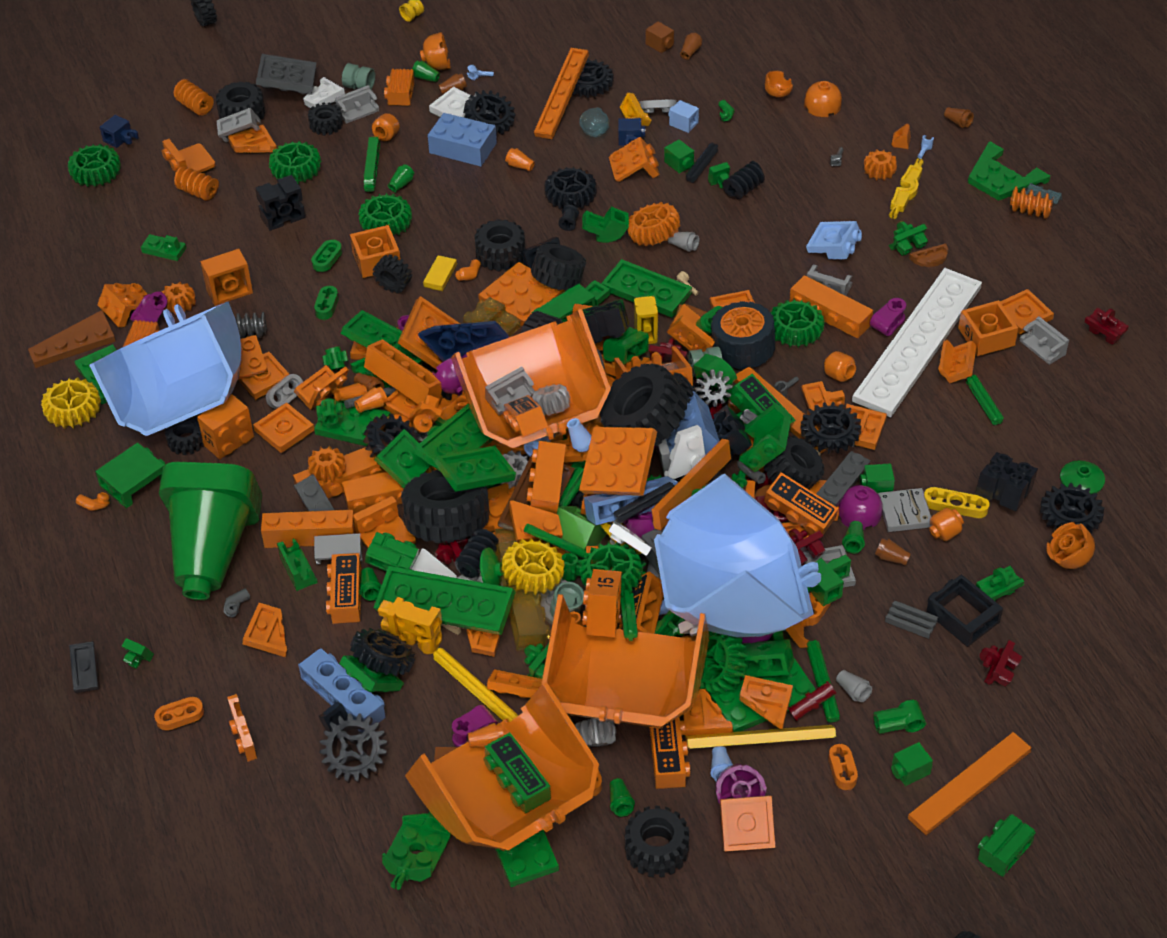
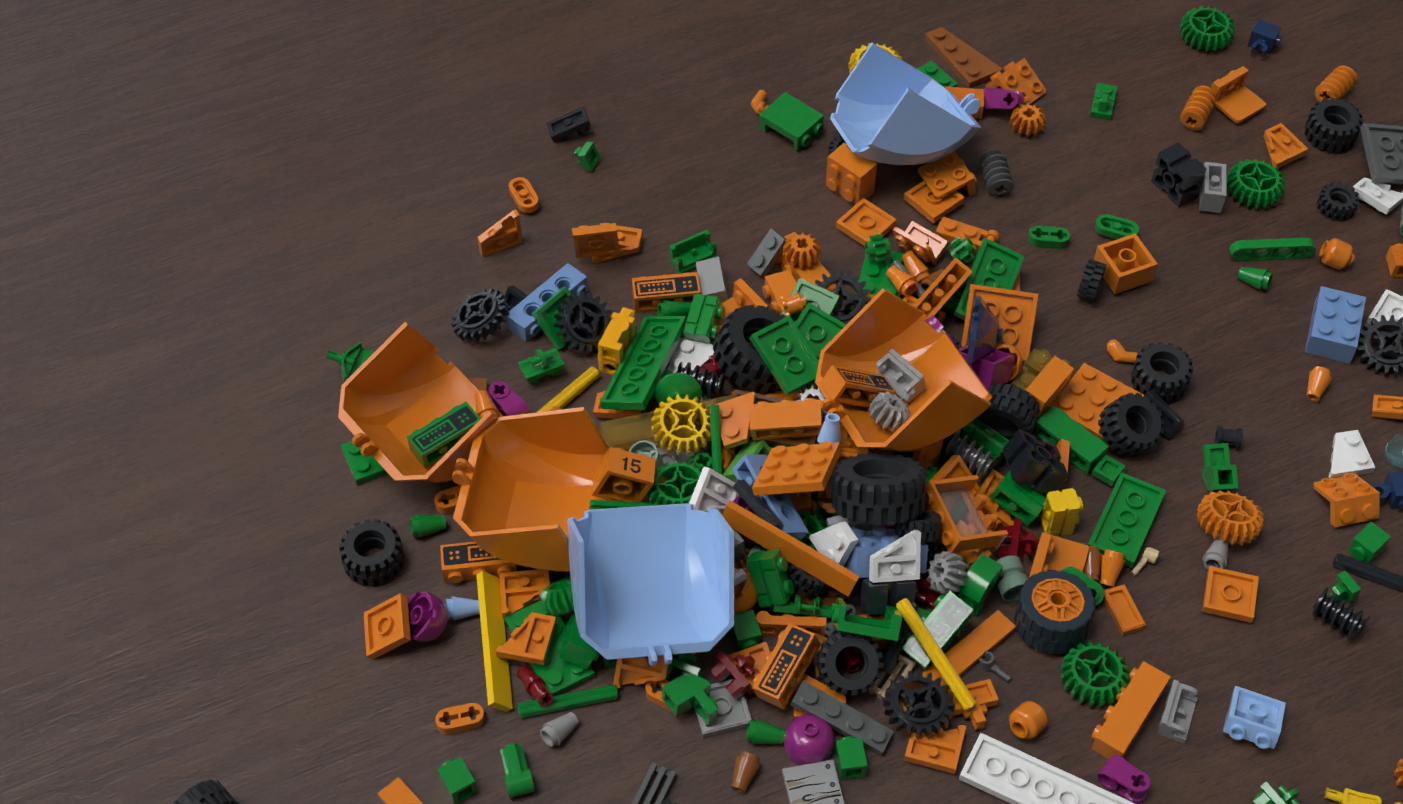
camera: 85 degrees right, 5 degrees up
(207, 518) = (717, 171): green cone -> none
(226, 277) = (1056, 147): orange brick -> none
(233, 602) = (648, 215): dark grey arm -> none
(237, 122) = (1296, 124): light grey hinge -> none
(277, 632) = (595, 240): none -> orange plate
(283, 391) = (914, 214): light grey plate -> none
(304, 526) = (734, 250): orange brick -> none
(306, 180) = (1213, 188): none -> light grey brick
(311, 358) = (951, 229): none -> orange plate
(357, 104) = (1370, 225): light grey hinge -> none
(385, 211) = (1189, 269): green gear -> none
(407, 465) = (793, 304): none -> orange brick
(430, 694) = (541, 364): none -> green hips
(440, 273) = (1114, 328): yellow tile -> none
(512, 308) = (1050, 383): none -> orange slope
(570, 187) = (1293, 440): black gear -> none
(590, 156) = (1350, 455): none -> white wing
(695, 298) = (1111, 566): none -> orange cone
(711, 408) = (897, 560): none -> white wing
(721, 238) = (1230, 594): none -> orange plate
(794, 403) = (936, 654): none -> yellow axle

